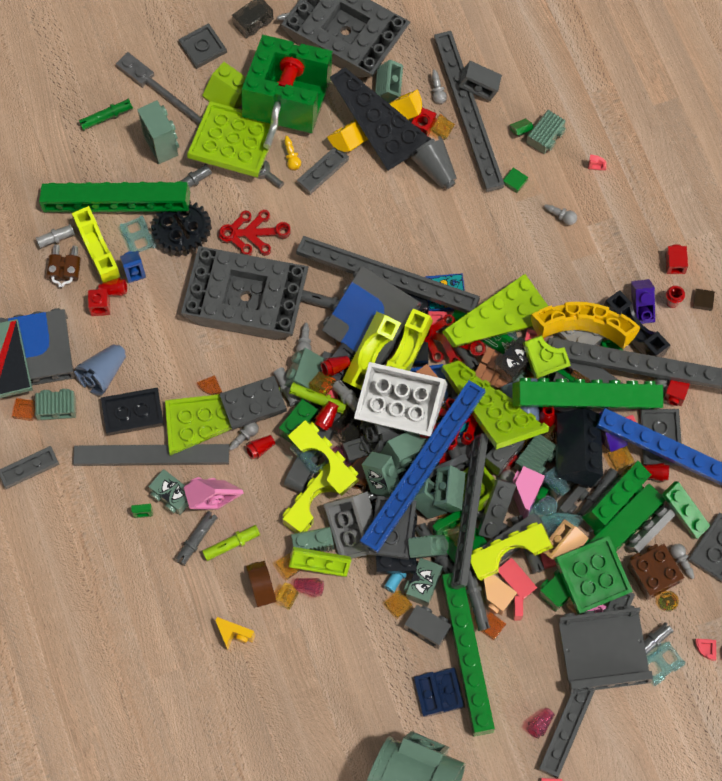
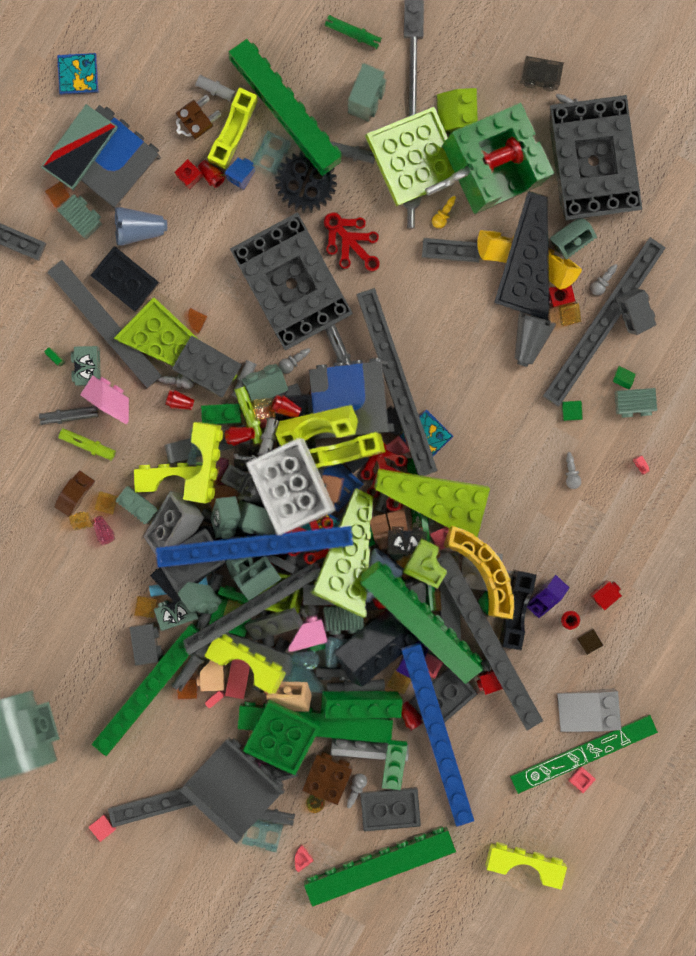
camera: 50 degrees right, 20 degrees up
(202, 46) = (481, 54): dark grey tile -> none
(229, 630) = (20, 499): yellow slope -> none
(319, 561) = (125, 524): lime tile -> none
(439, 692) = (105, 691): dark blue slope -> none
(539, 724) = (143, 782): clear pink cone -> none

